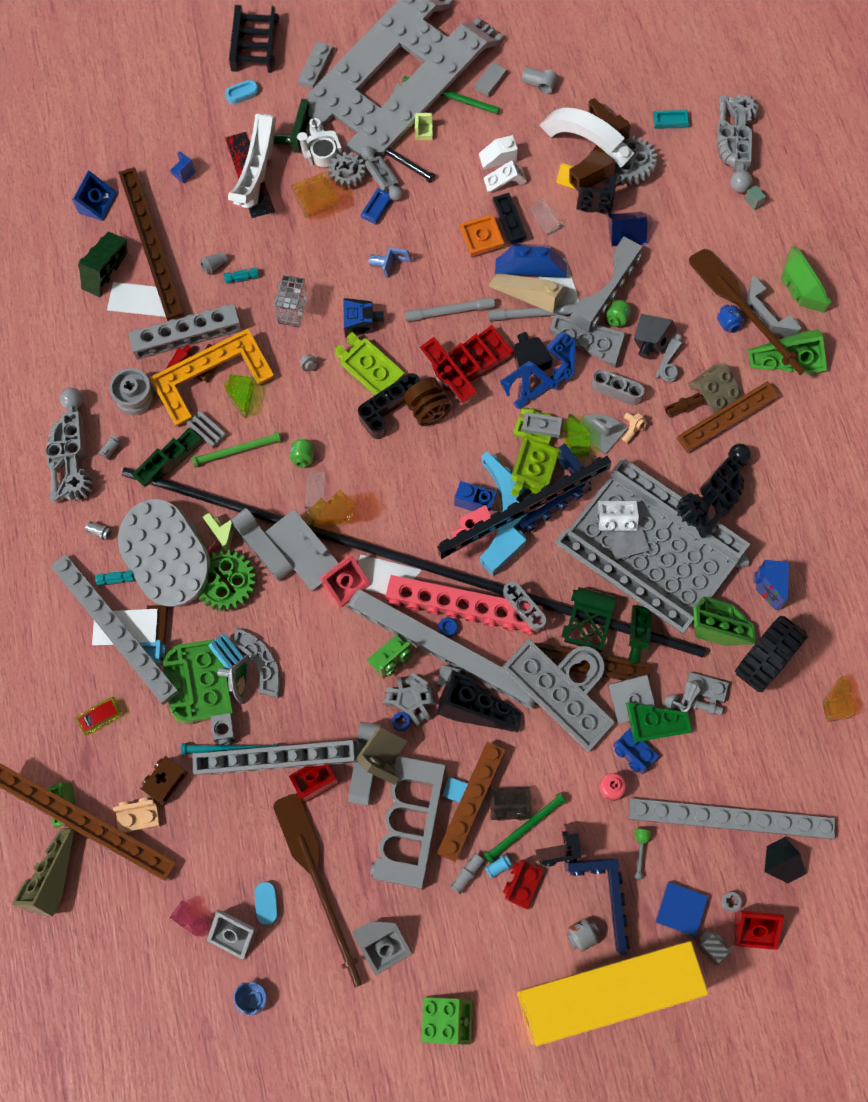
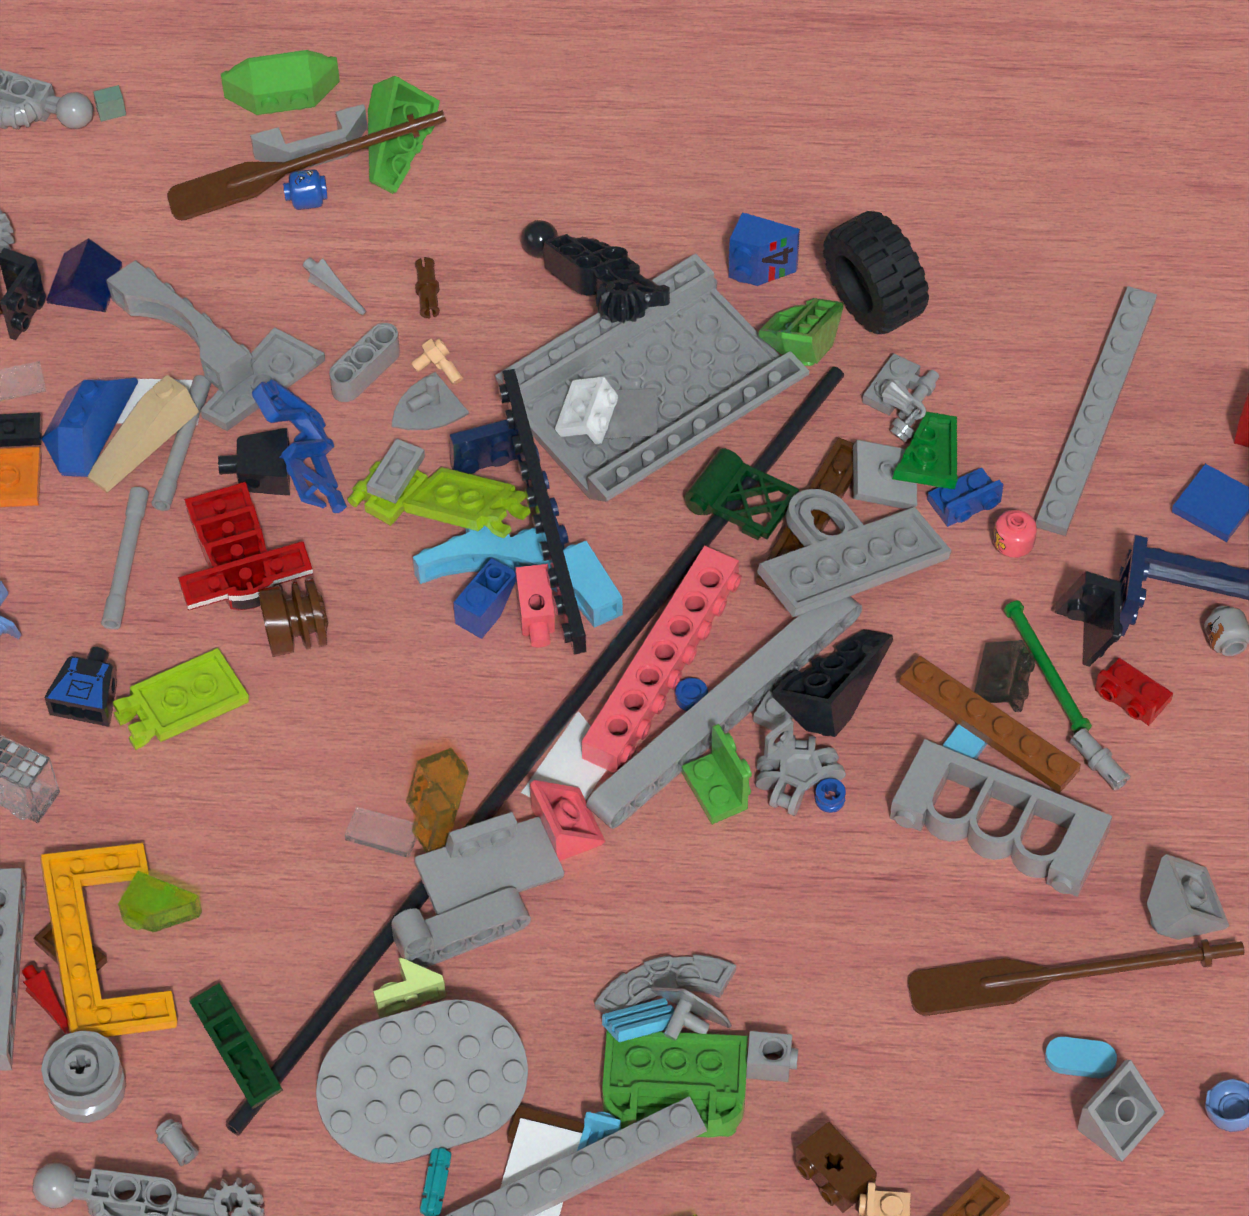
camera: 75 degrees left, 15 degrees down
(98, 530) = (335, 1191): light grey pin -> none
(195, 419) = (199, 972): light grey tile -> none
(195, 925) = (1085, 1175): clear pink leg -> none
(217, 748) = (787, 1126): teal bar -> none
(236, 449) = (258, 1004): bright green bar -> none
(239, 570) = (491, 975): bright green gear -> none
(275, 758) = (848, 976): light grey brick -> none
(302, 453) = (308, 831): bright green head -> none
(308, 362) = (140, 786): light grey plate -> none
(313, 781) = (894, 938): red slope -> none
(361, 780) = (886, 857): light grey beam -> none
(380, 754) = (887, 822): dark tan bracket -> none
(392, 402) = (262, 679): black beam -> none
(498, 866) = (1099, 717): medium azure pin -> none
(523, 614) = (703, 554): light grey beam -> none
(577, 436) = (430, 433): clear neon green slope -> none
(618, 313) = (239, 323): bright green head -> none
(639, 632) = (785, 429): dark green piece -> none
(642, 836) = (1099, 520): hinge -> none
(653, 334) = (294, 289): black torso -> none
(668, 372) = (365, 291): light grey plate -> none
(717, 387) = (408, 234): dark tan bracket -> none
(727, 417) = (469, 240): dark orange plate -> none
(728, 896) = (1223, 447): light grey bush -> none
(784, 861) = (1172, 357): black slope -> none
(838, 702) = (958, 231): clear yellow slope -> none

